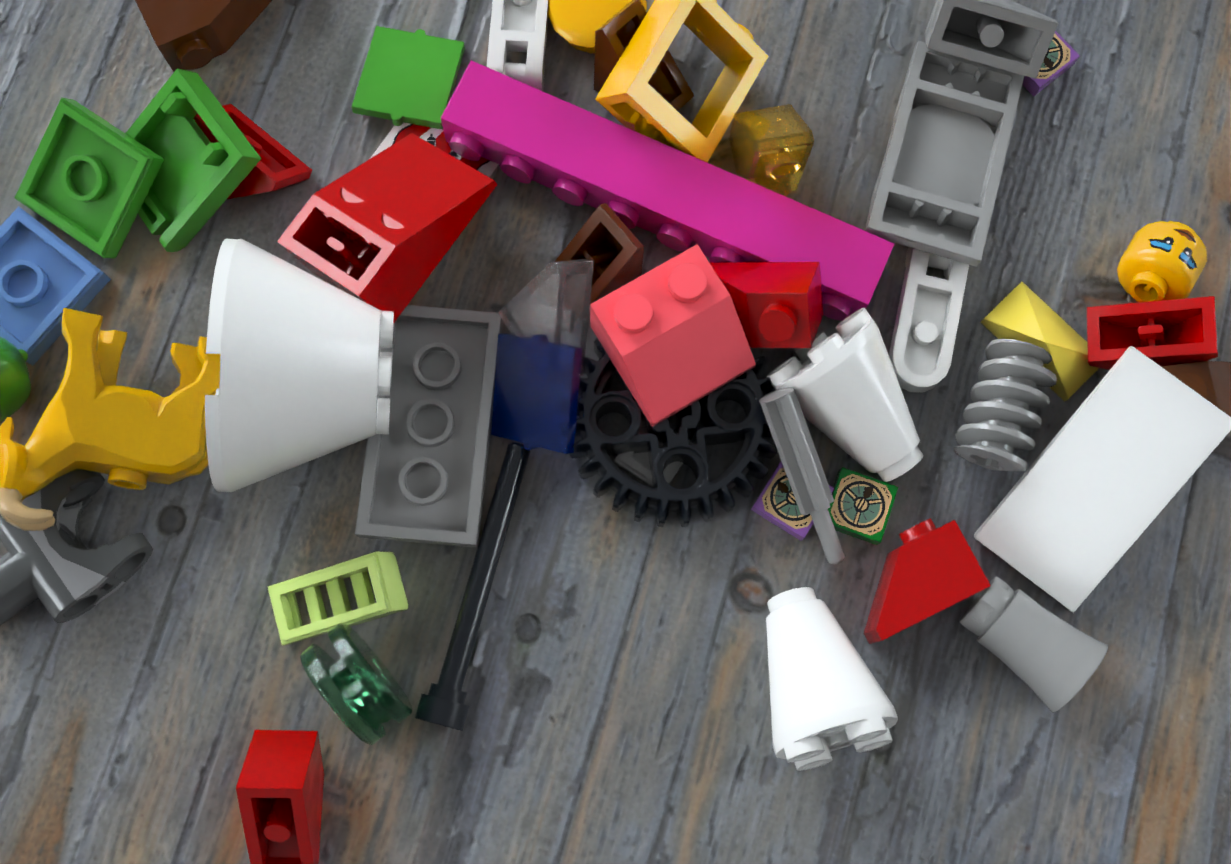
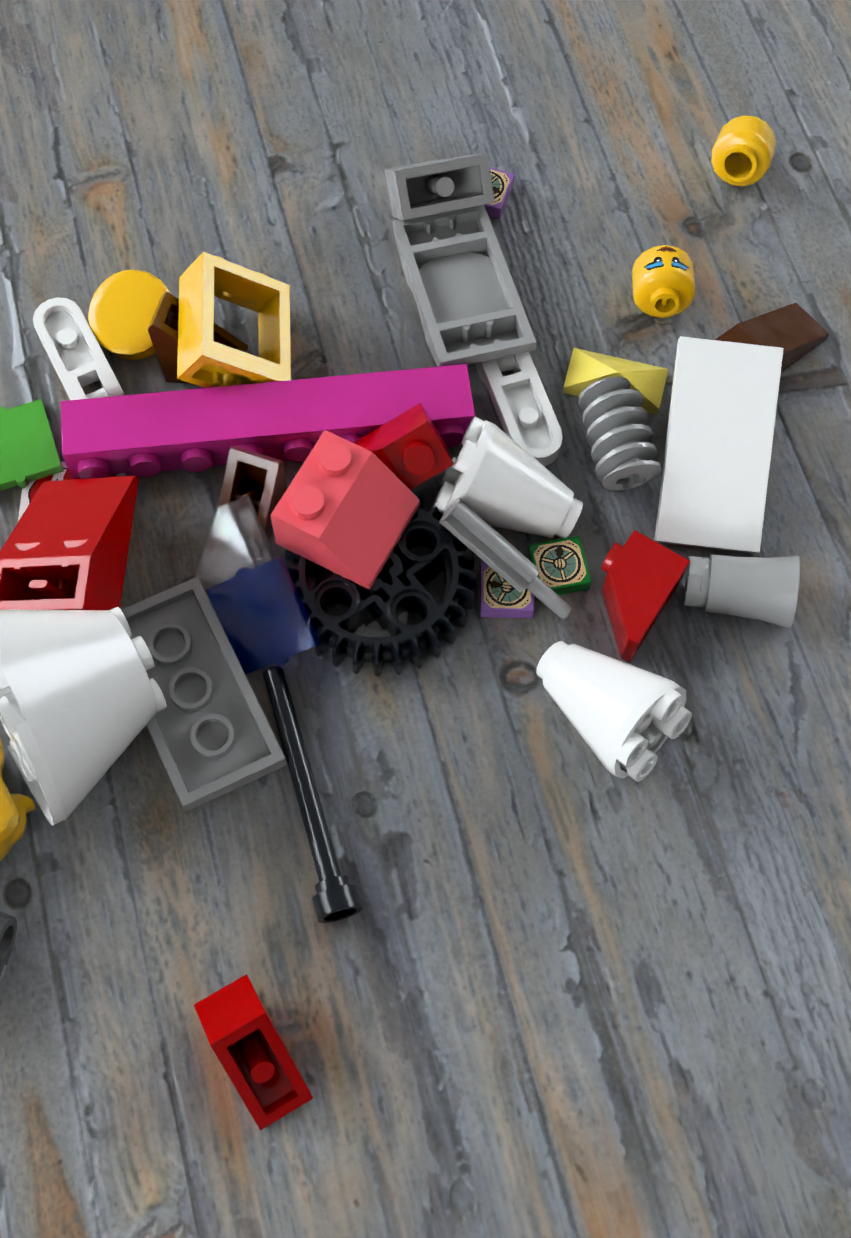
camera: 30 degrees left, 10 degrees down
(357, 685) = (258, 915): clear green head -> none
(386, 586) = (197, 837): yellowish green slope -> none
(771, 147) = (331, 344): clear yellow slope -> none
(1162, 330) = (701, 315): red slope -> none

